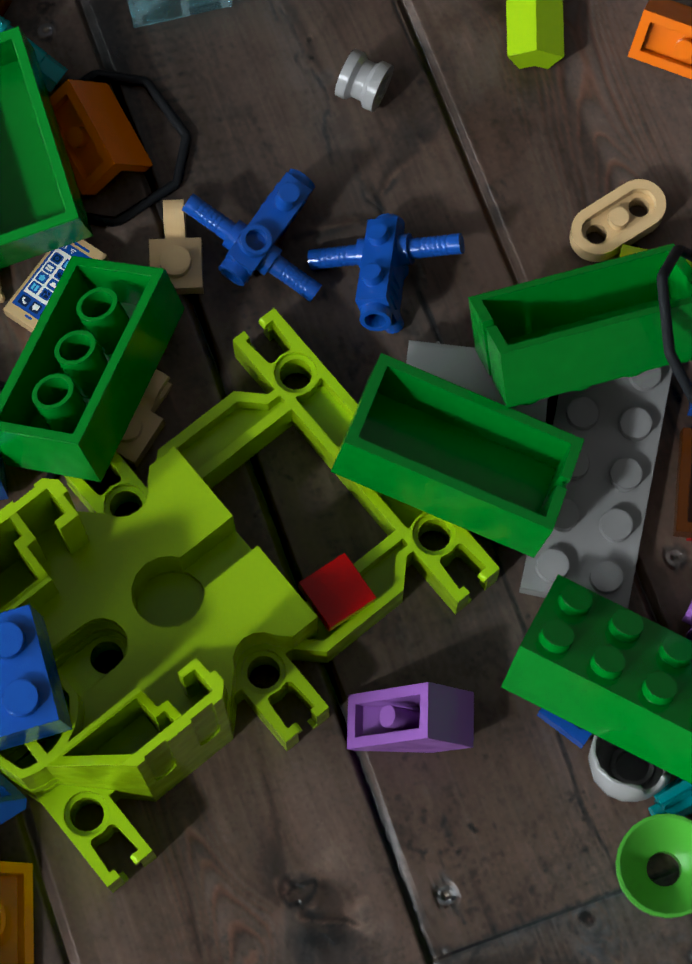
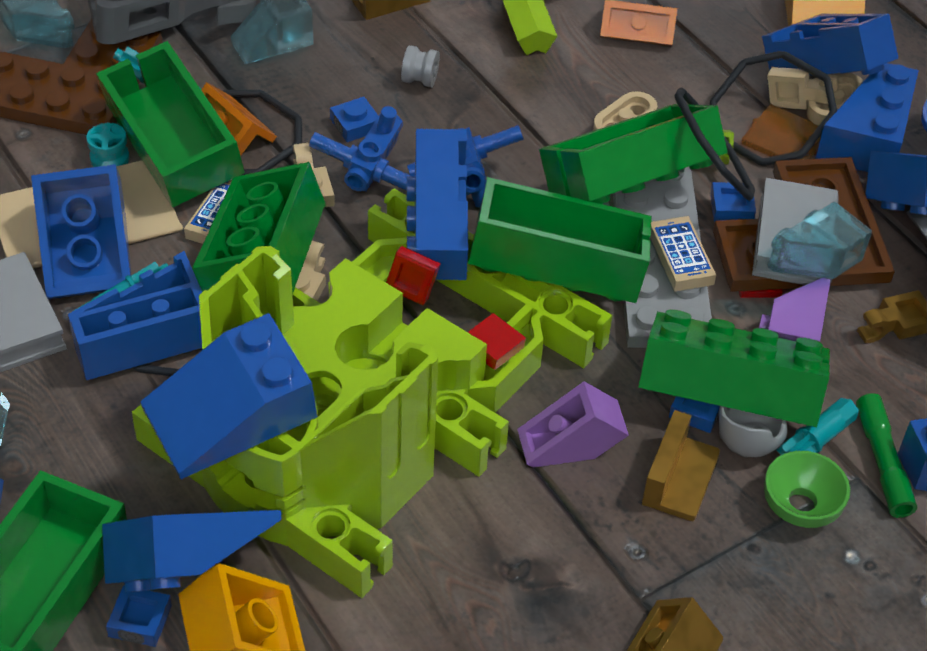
camera: 15 degrees left, 25 degrees down
(257, 475) = (413, 275): none -> red tile
(259, 153) = (353, 118): none -> blue plate
(313, 377) = (440, 201): none -> blue wedge
(529, 800) = (680, 471): none -> pearl gold panel
(619, 479) = (682, 254): none -> tile

